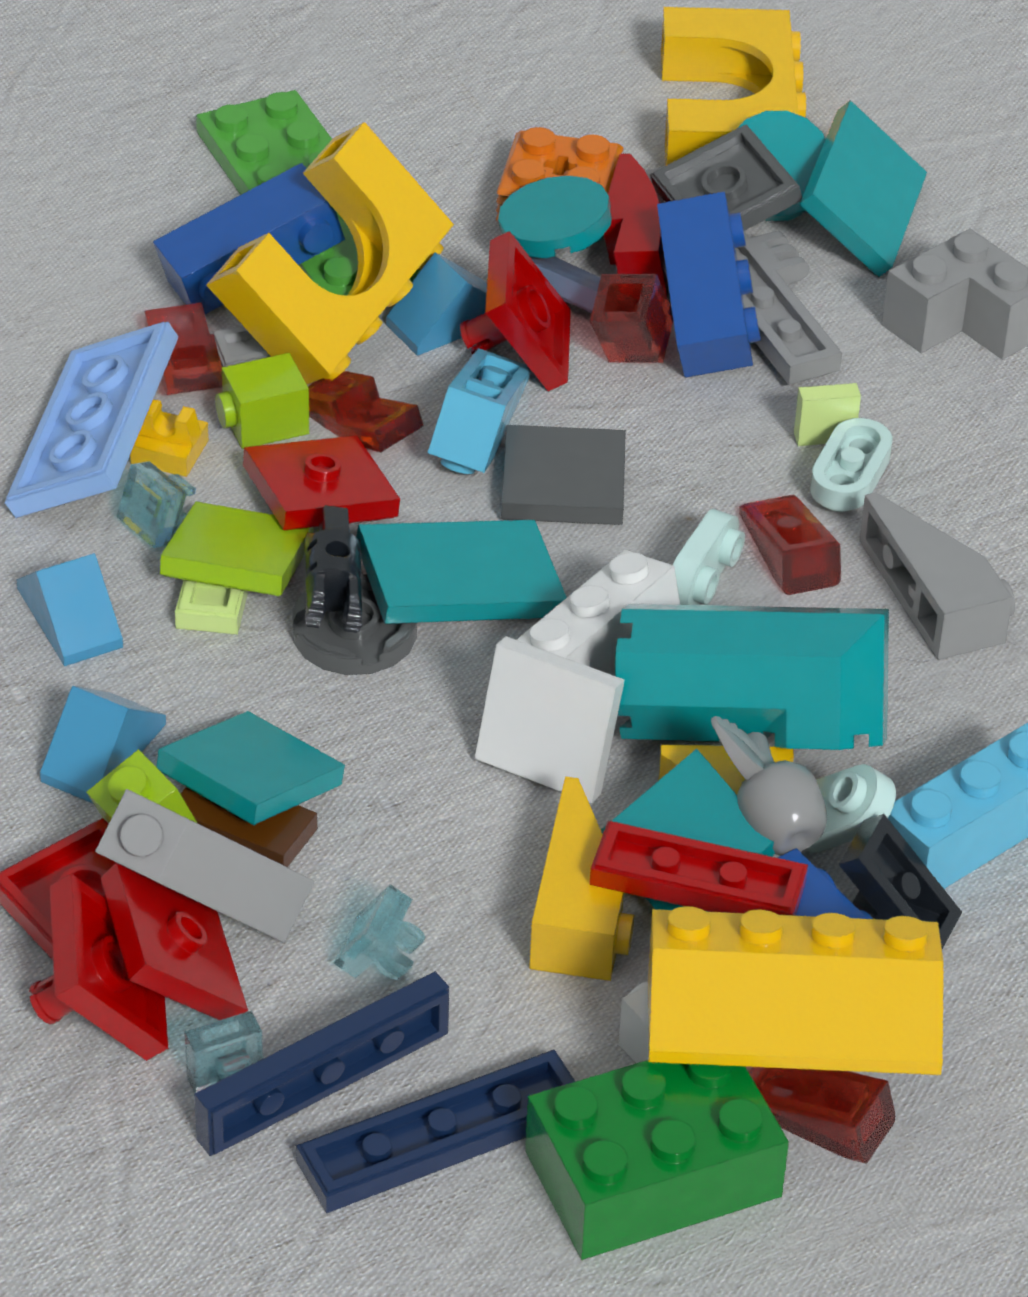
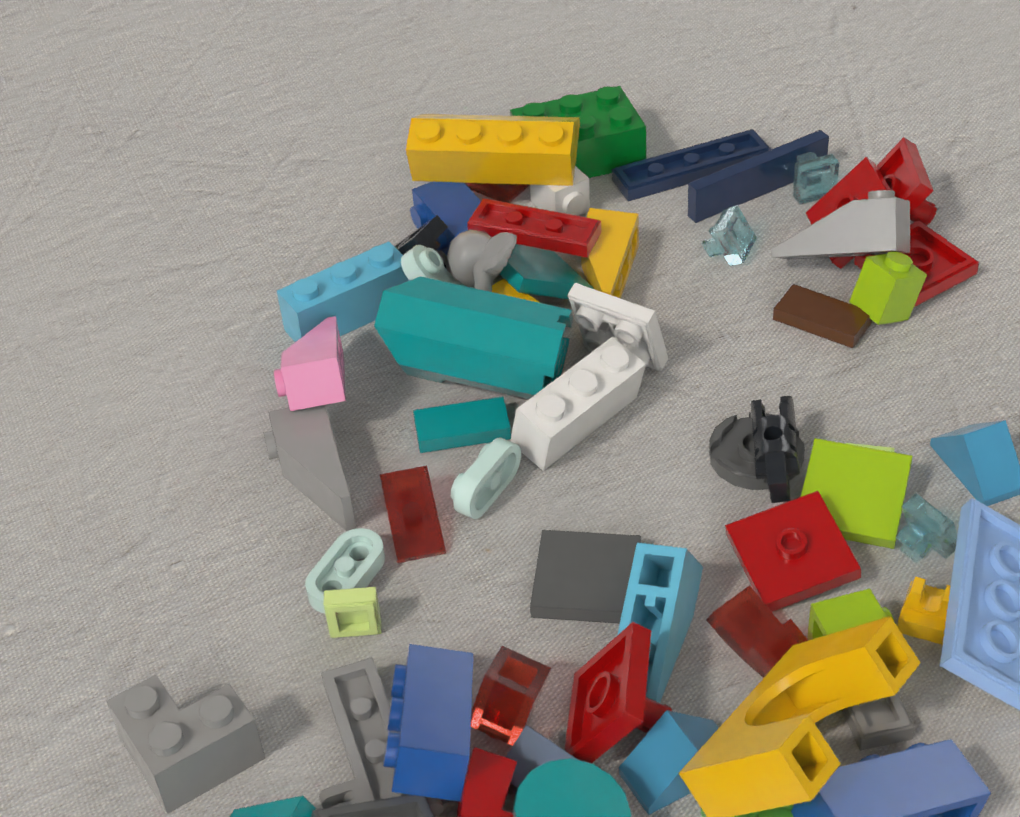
camera: 170 degrees left, 0 degrees up
(95, 737) = (924, 363): dark azure slope -> none
(195, 357) = (936, 709): clear red slope -> none
(250, 767) = (821, 325): teal tile -> none
(459, 571) = (676, 472): teal tile -> none
(965, 633) = (313, 368): none -> bright pink slope

